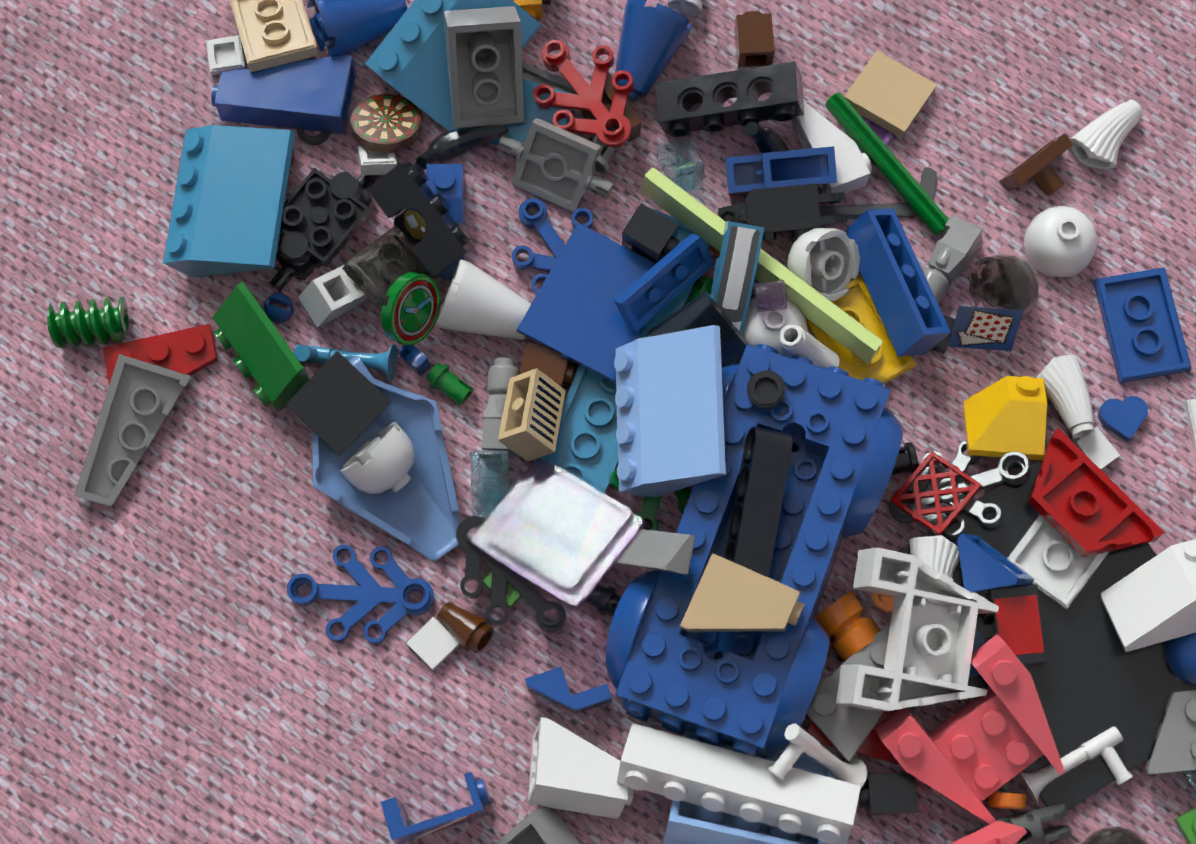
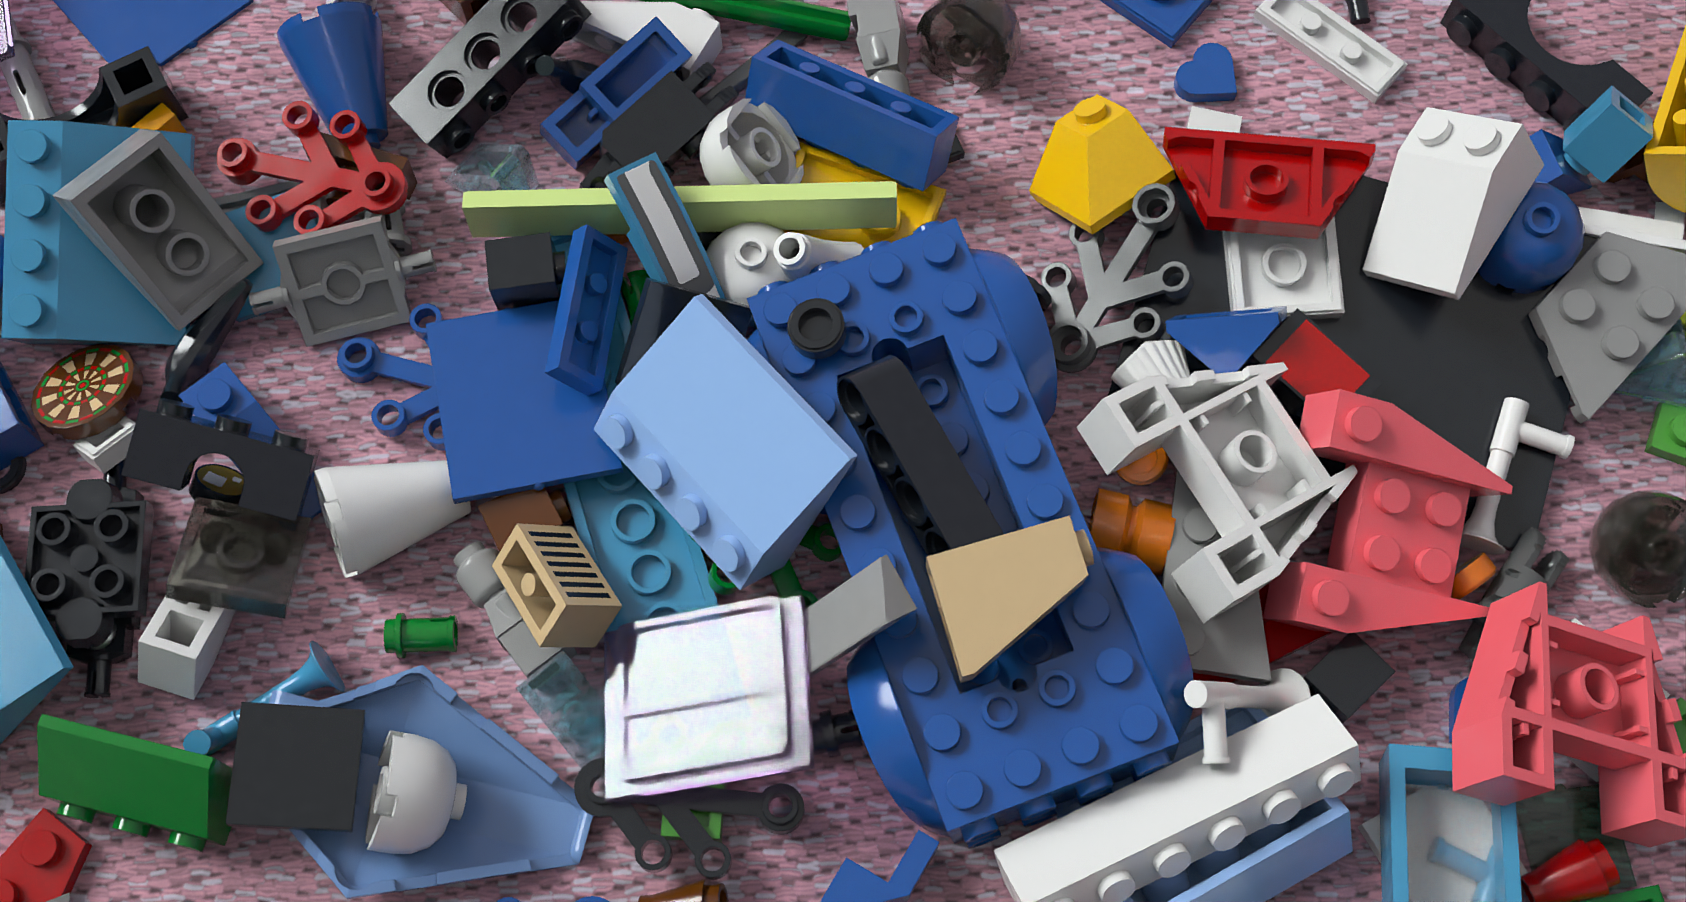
camera: 40 degrees left, 5 degrees down
(275, 312) = (127, 722): blue hinge -> none
(411, 308) = (297, 578): tile -> none
(414, 358) = (351, 638): blue tile -> none
(770, 296) = (726, 228): clear purple hose -> none
(917, 515) = (1093, 265): red window -> none
(985, 328) = (988, 90): sticker -> none
(1069, 394) = (1138, 90): white piece -> none

